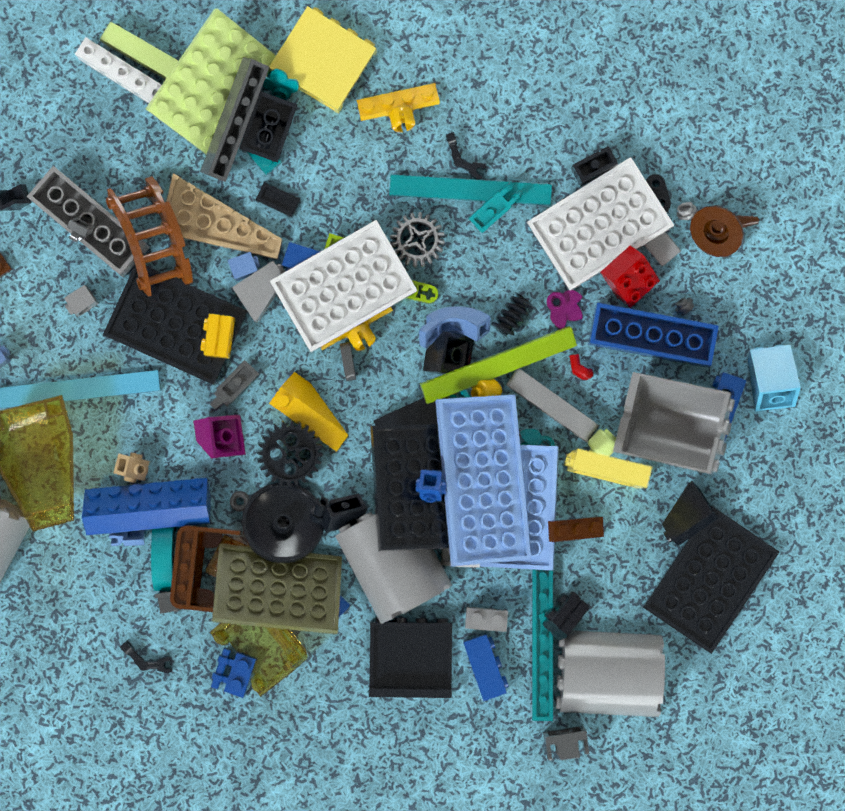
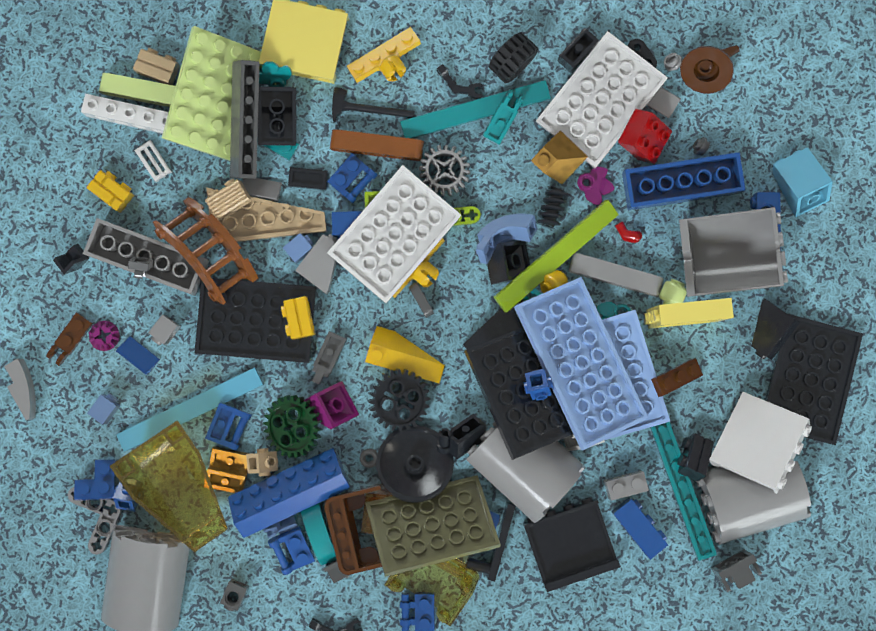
camera: 20 degrees left, 0 degrees up
(25, 291) = (111, 340): none -> magenta gear
(45, 317) = (138, 355): none -> blue slope
(65, 585) = (238, 587): none -> dark grey brick
(76, 143) = (110, 191): none -> yellow brick
(95, 462) = (228, 469): none -> pearl gold slope
(105, 414) = (222, 422): none -> blue plate
(133, 144) = (162, 174): none -> white tile
(136, 562) = (297, 547): none -> blue plate
(165, 34) = (156, 67): none -> tan brick
(174, 442) = (279, 433): none -> dark green gear
(190, 192) = (228, 199): none -> tan brick
(227, 193) = (263, 188): none -> light grey slope
(319, 209) = (347, 174): none -> blue plate
(322, 654) = (491, 568): none -> black piece
(336, 137) = (340, 105): none -> black piece
(358, 190) = (376, 145): none -> dark orange beam
(526, 150) = (513, 57): none -> black tyre
(537, 267) = (559, 158): none -> pearl gold slope
(635, 622) = (761, 441): none -> white panel

